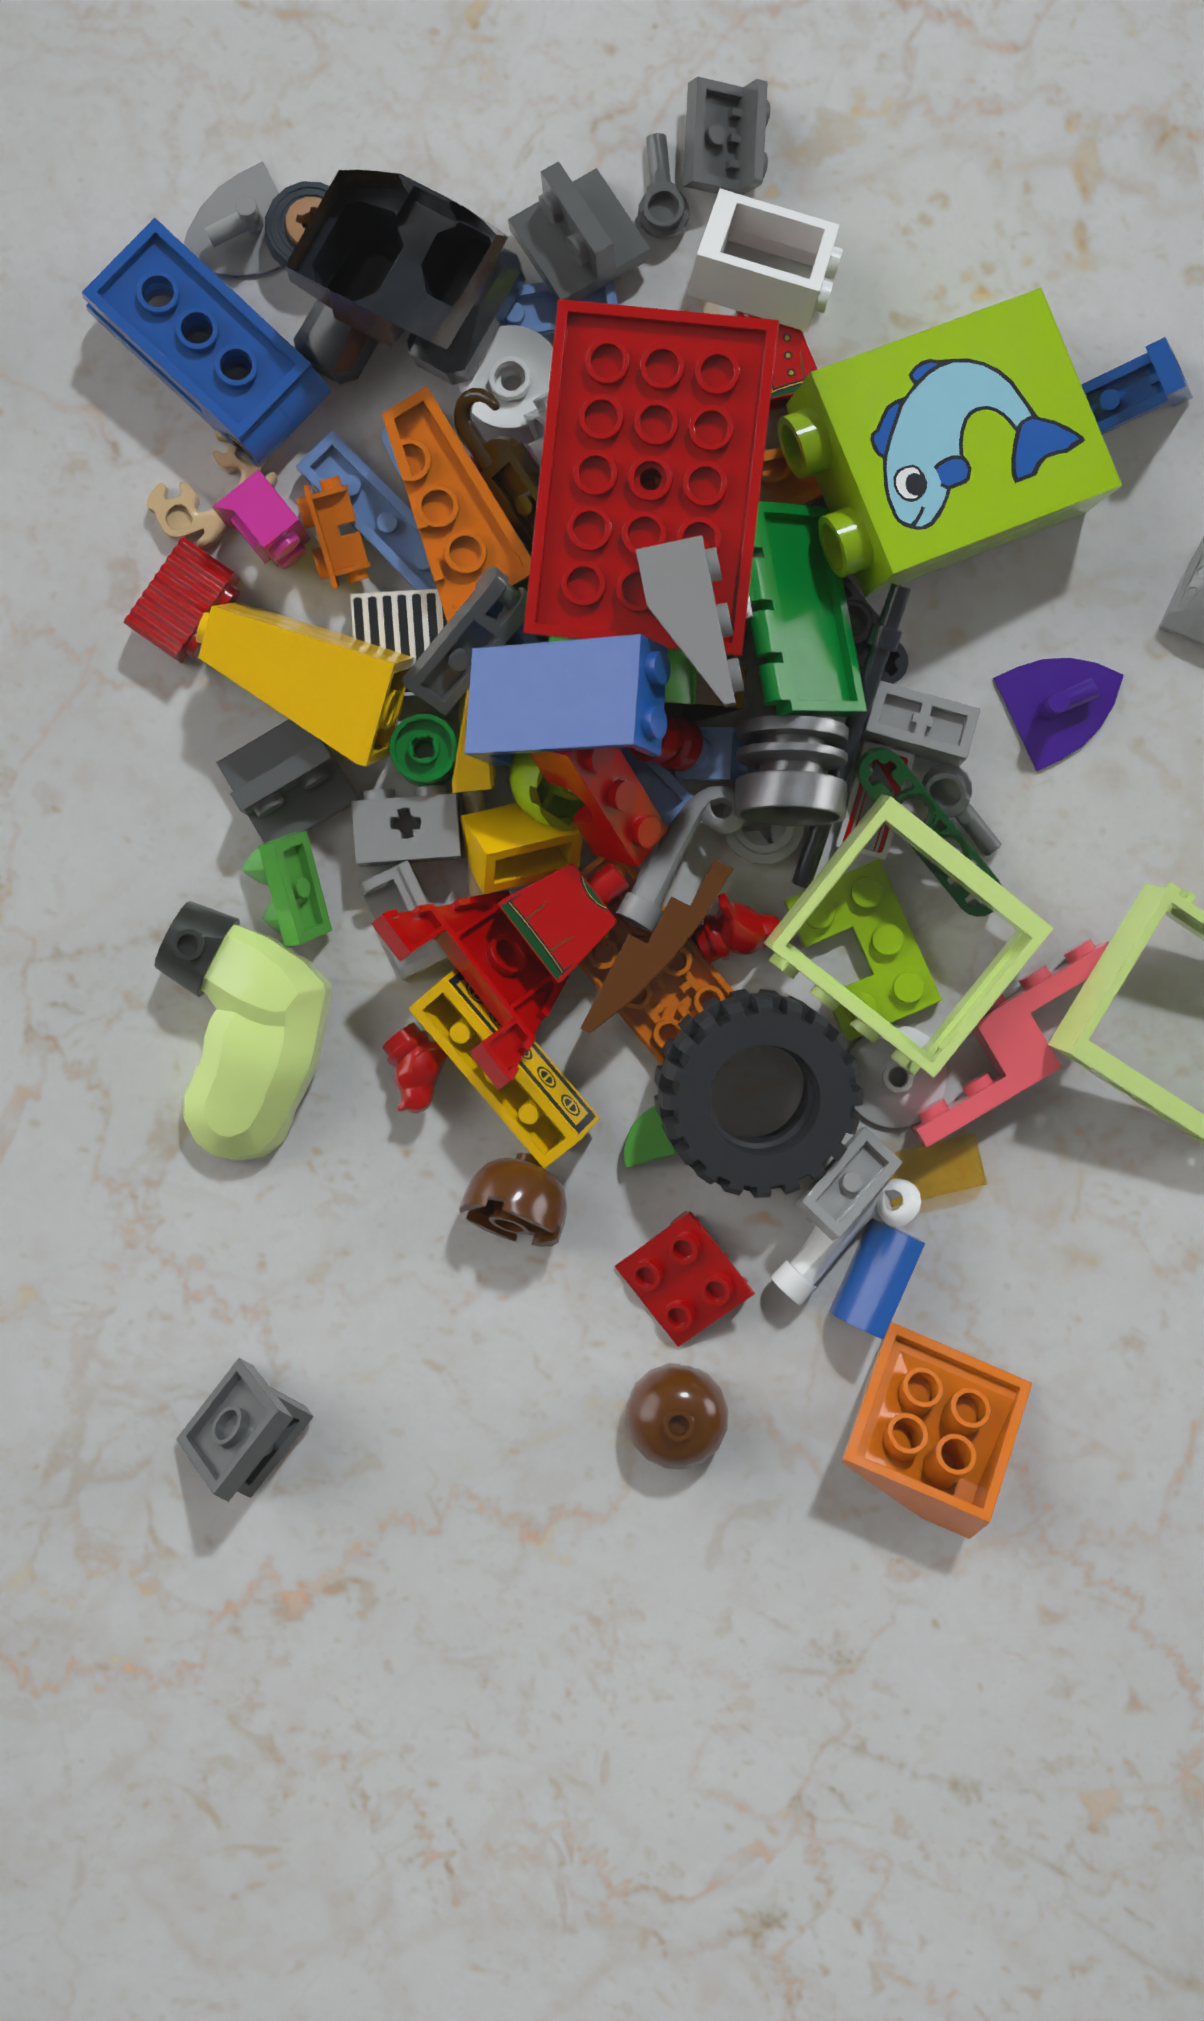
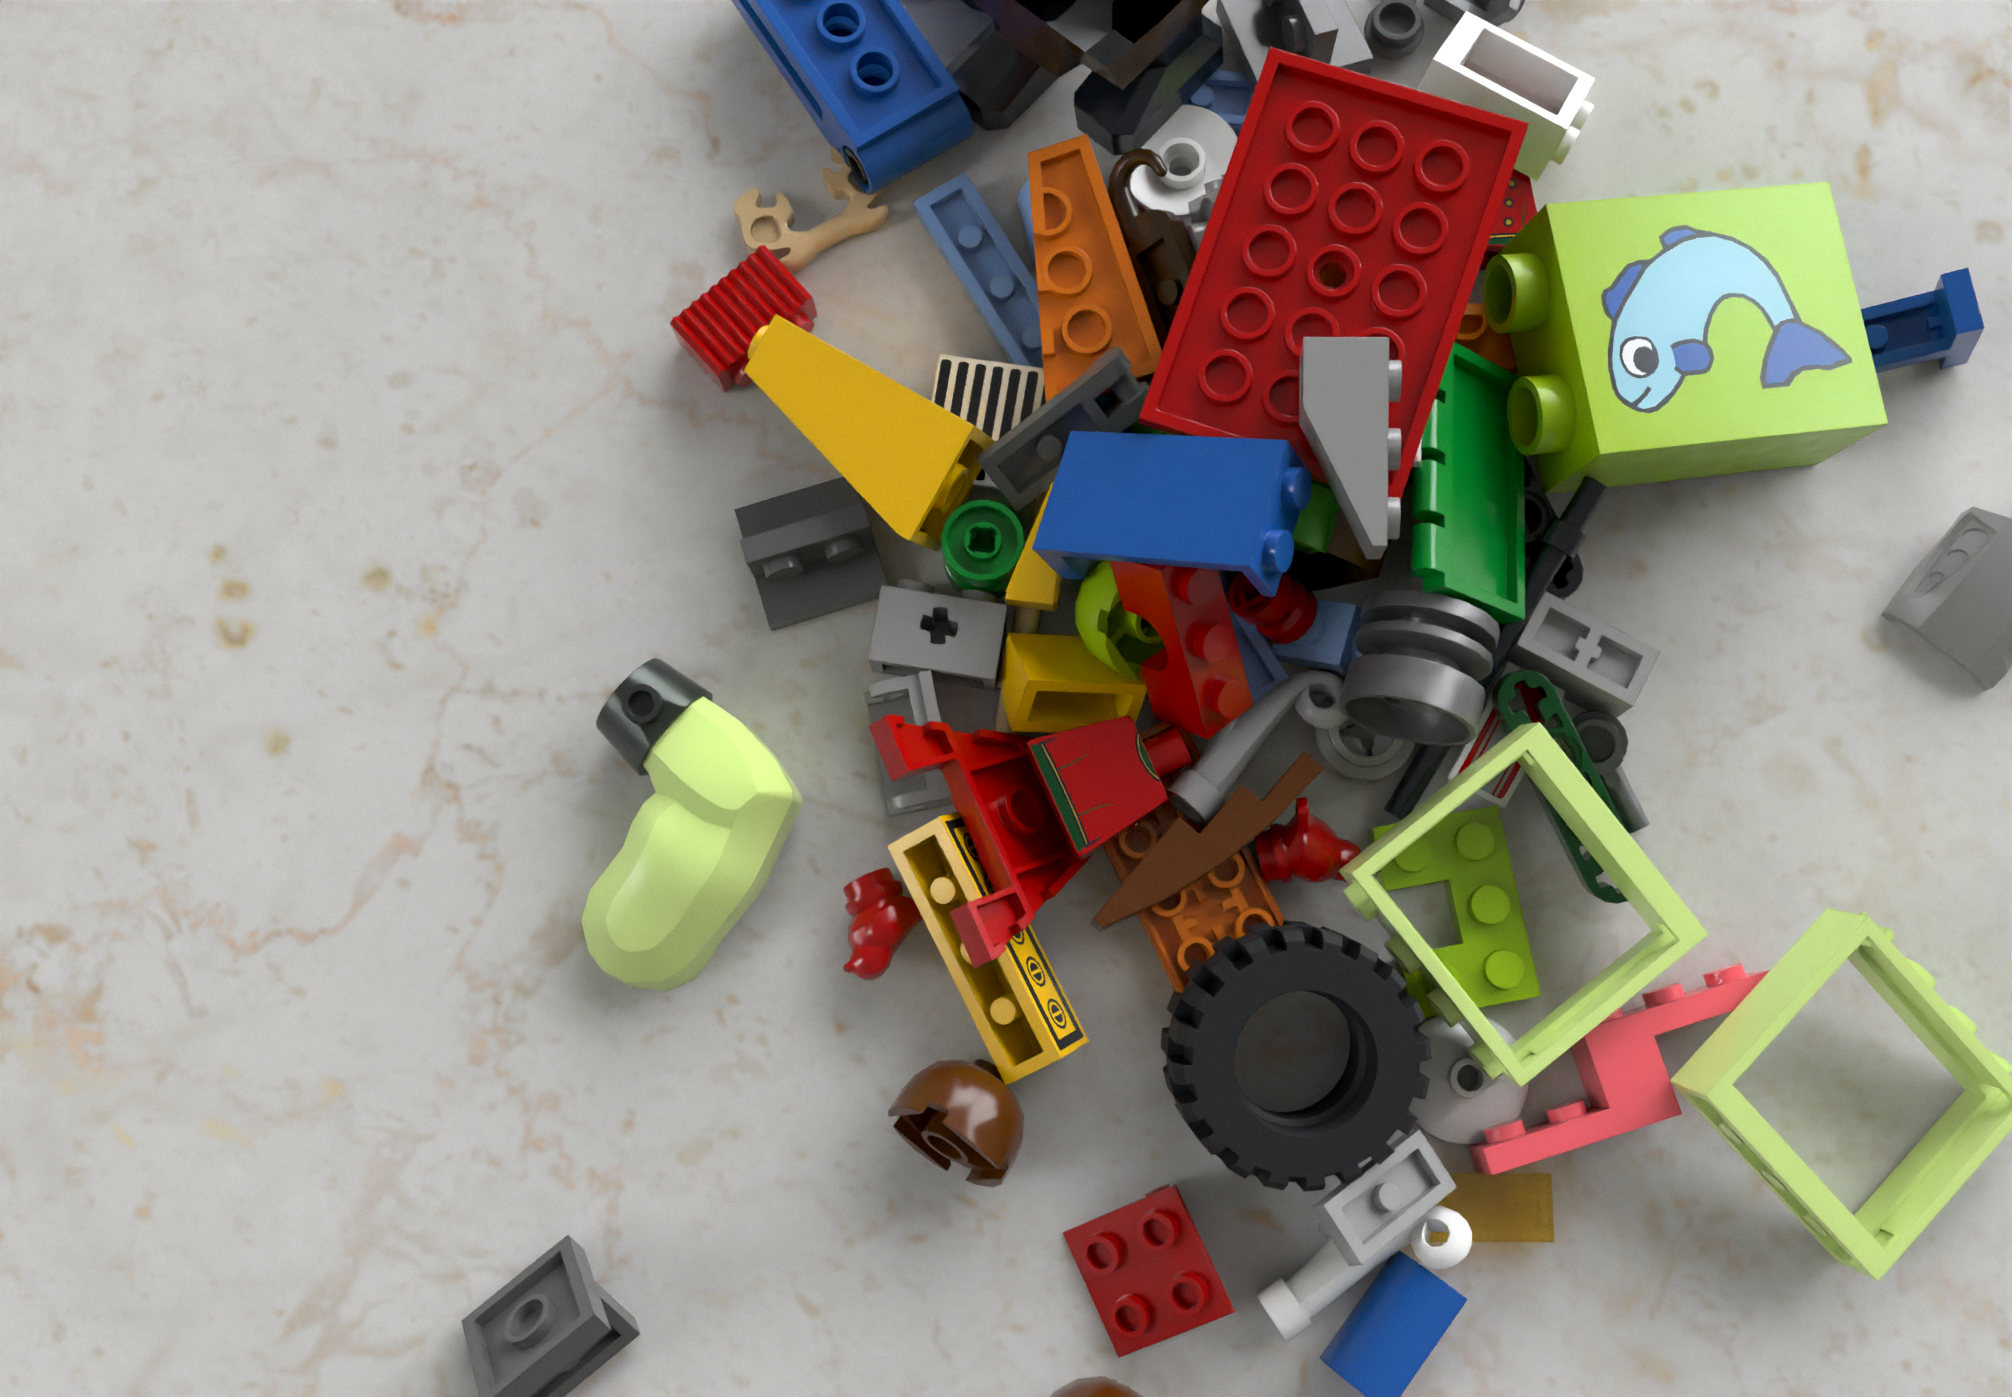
camera: 15 degrees right, 10 degrees down
(264, 521) = (862, 245): dark pink window -> none
(294, 885) = (788, 672): bright green tile -> none
(326, 512) = (938, 254): orange hinge -> none
(646, 1140) = (1140, 1082): bright green tile -> none
(1058, 704) = (1745, 676): dark purple shield -> none

